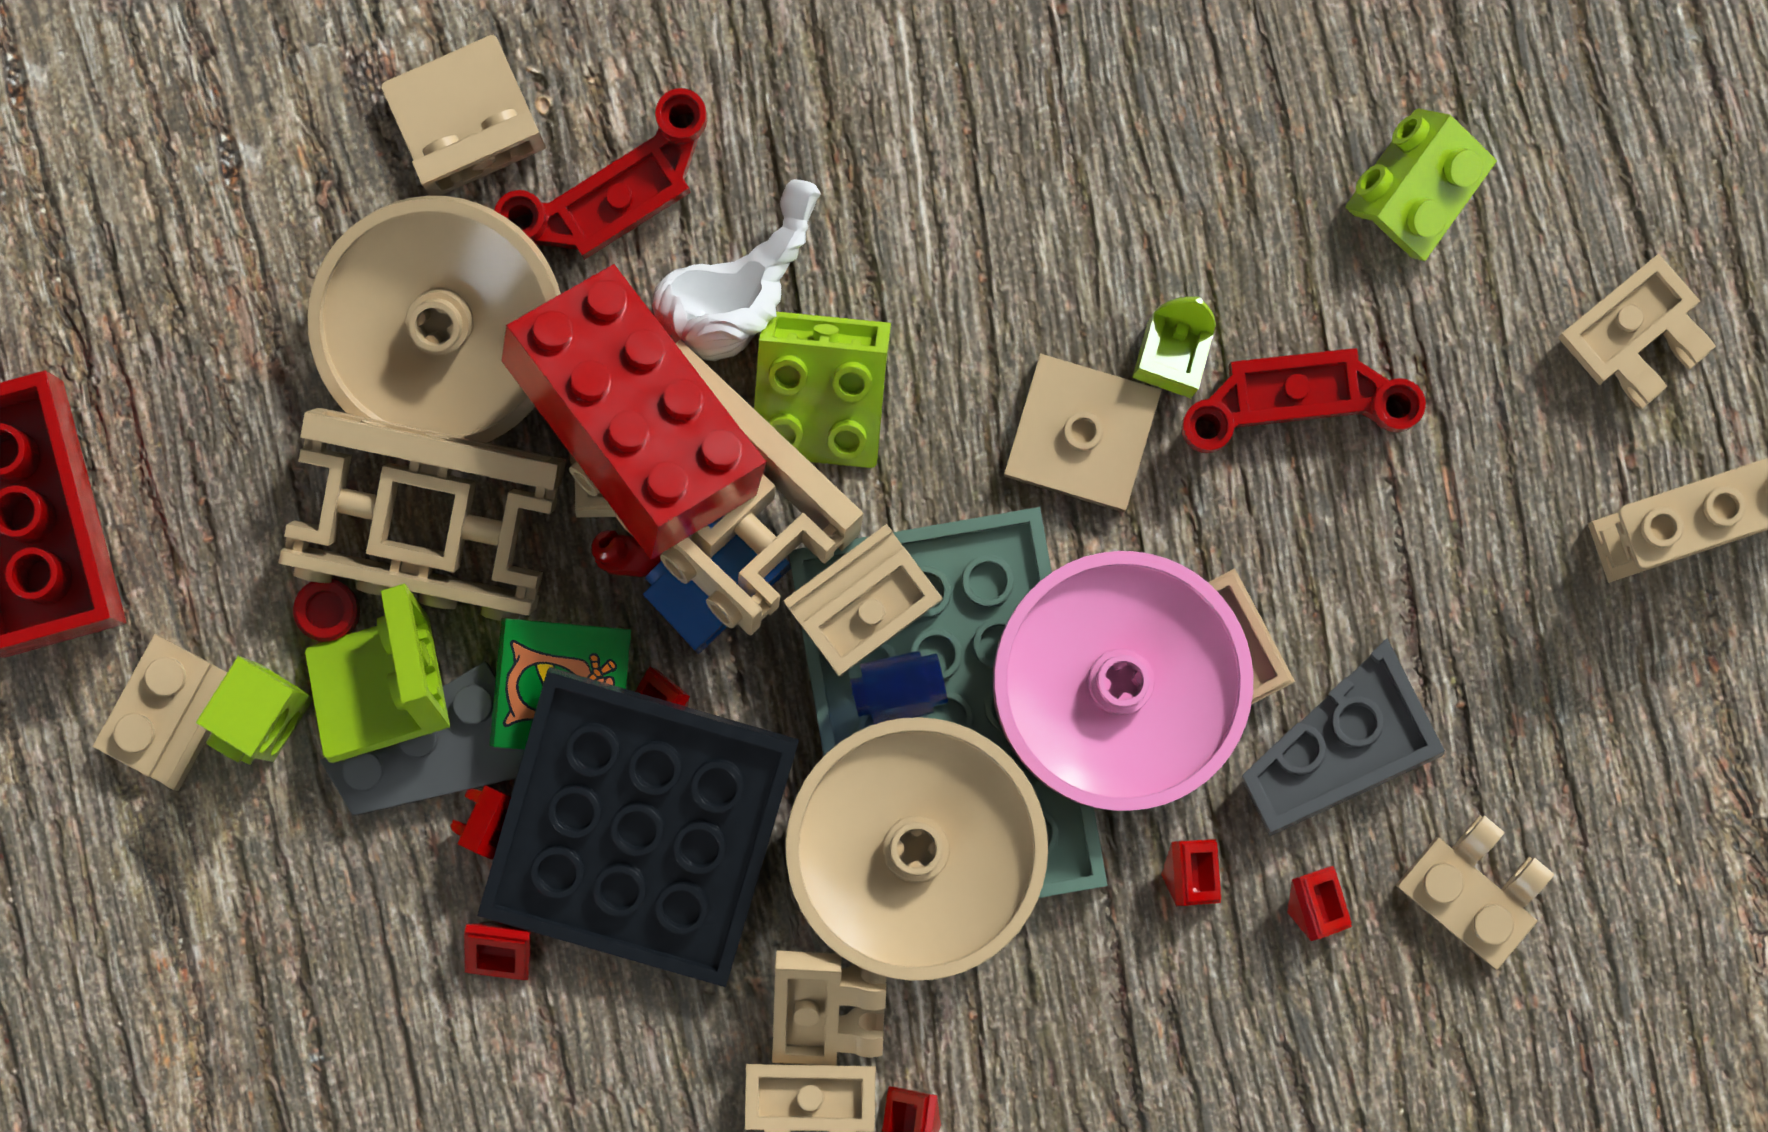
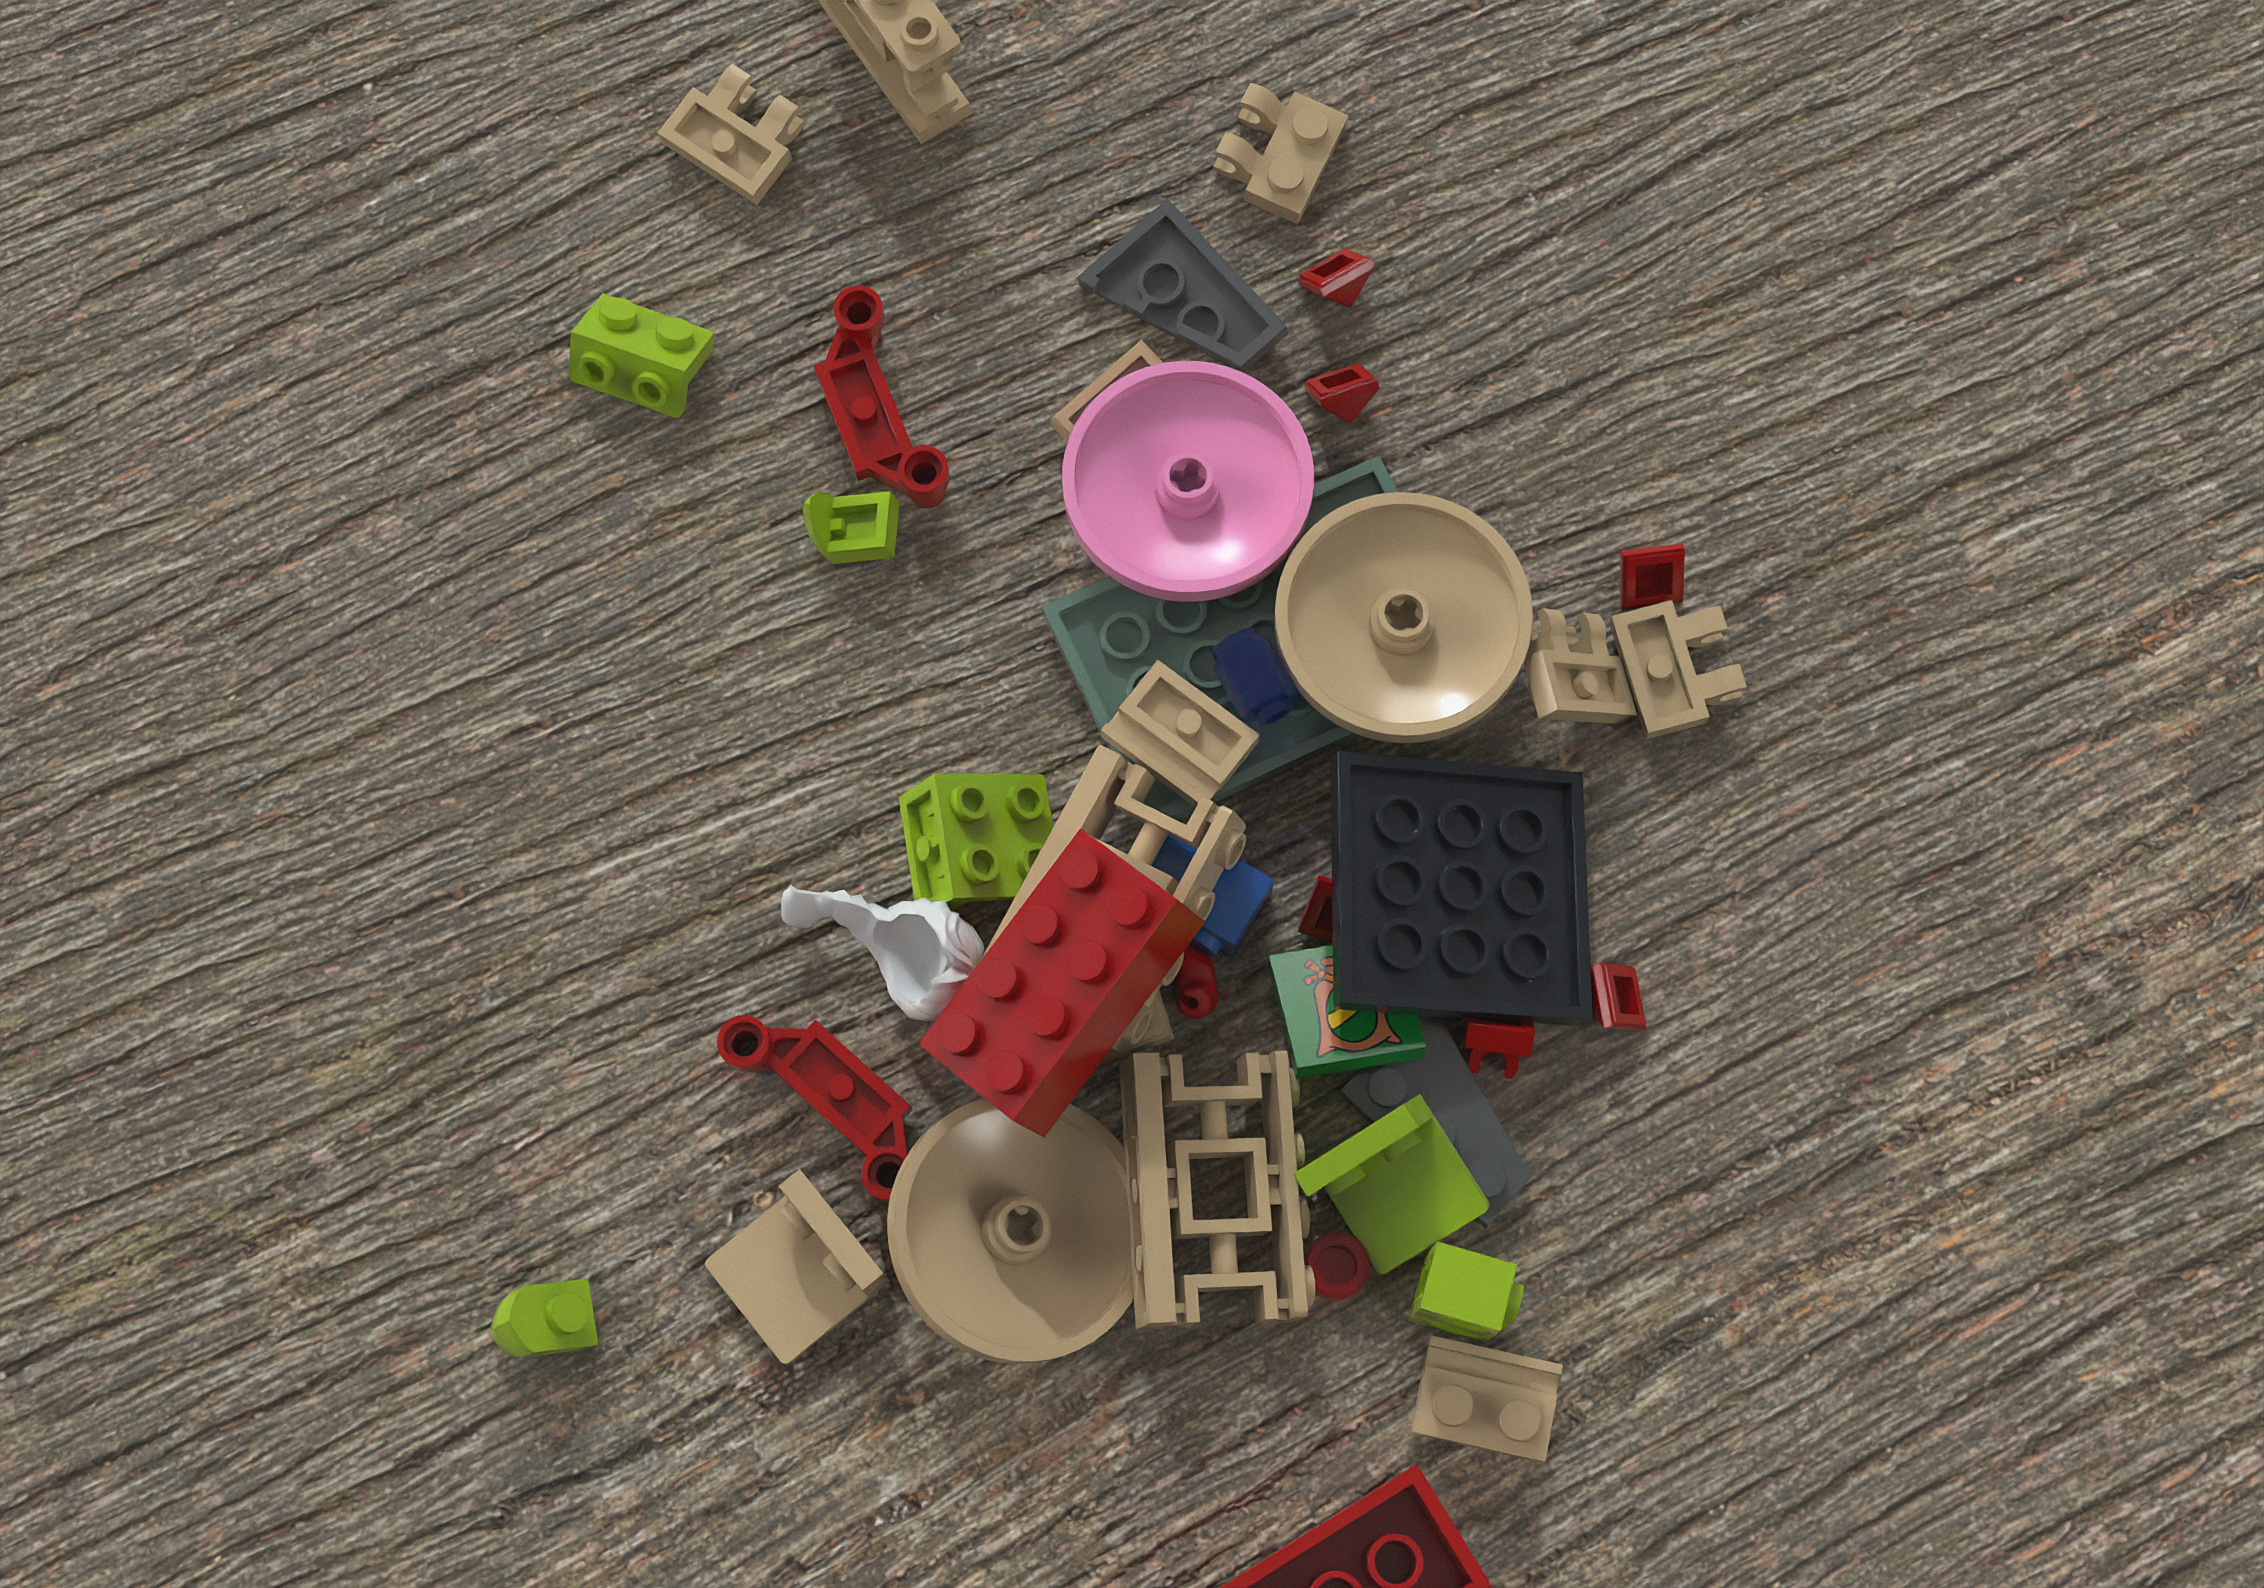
camera: 105 degrees left, 10 degrees down
(1082, 433) = (958, 594): tan plate -> none

